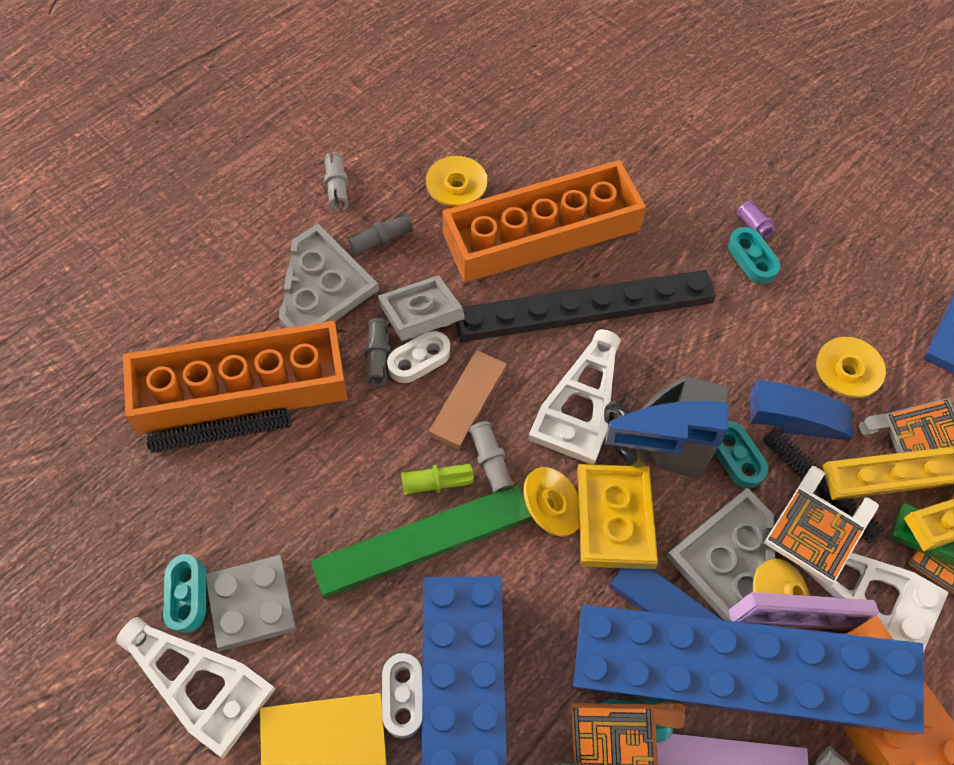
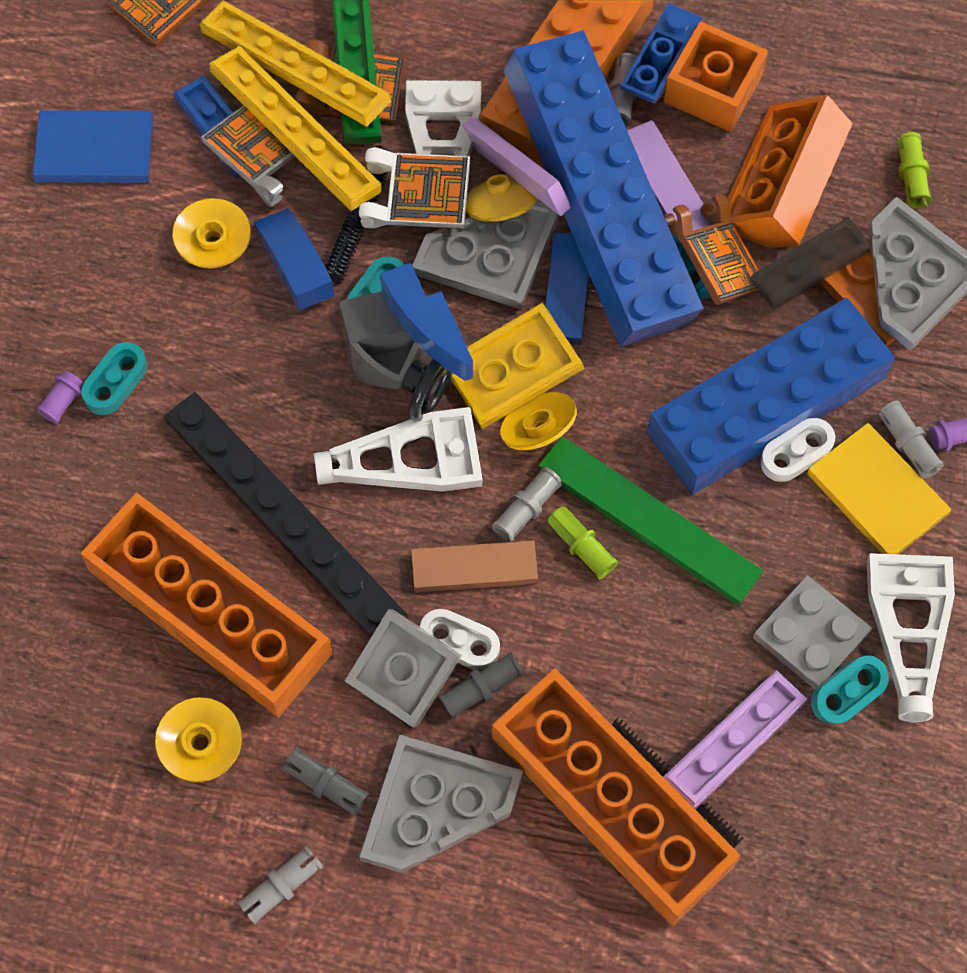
camera: 120 degrees left, 5 degrees up
(214, 487) = (735, 739): none -> lavender tile

